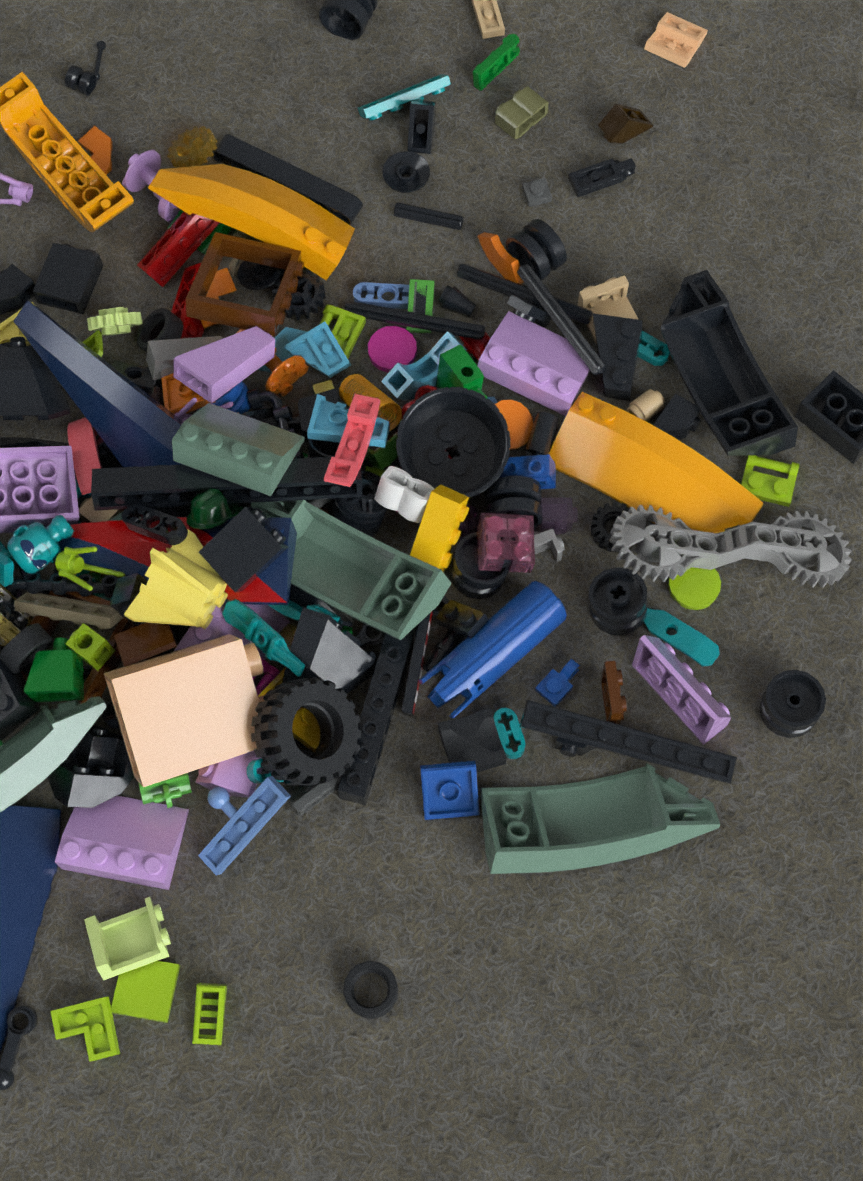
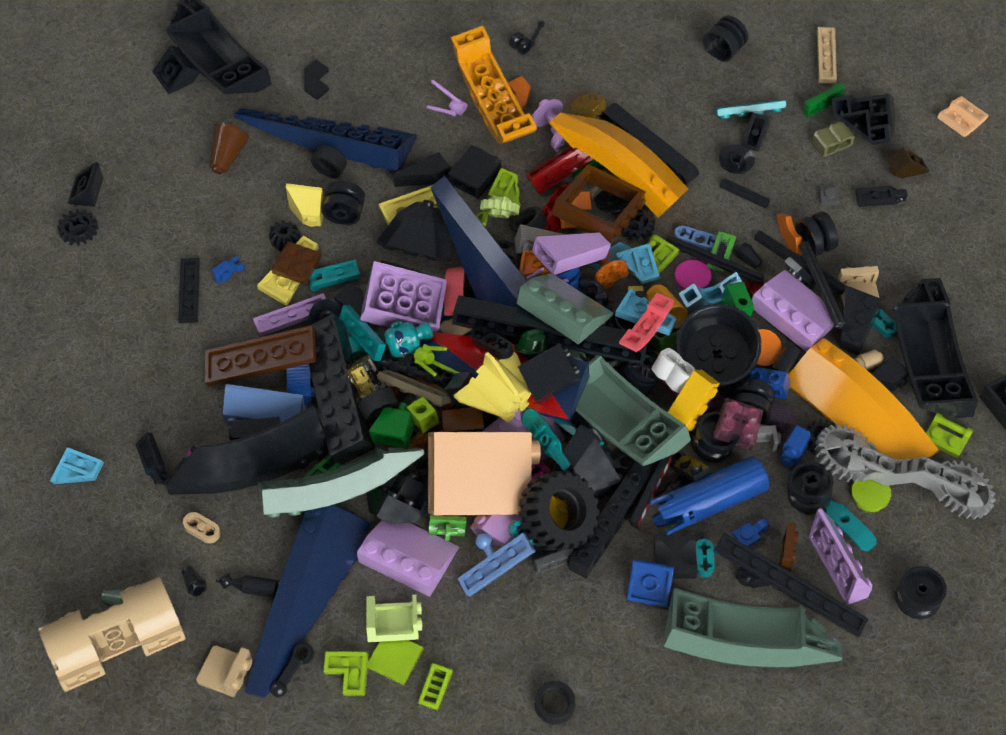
camera: 15 degrees right, 10 degrees down
(115, 290) = (505, 186): none -> lime wing
(558, 71) = (868, 116): none -> black brick
(584, 551) = (795, 447): none -> blue brick

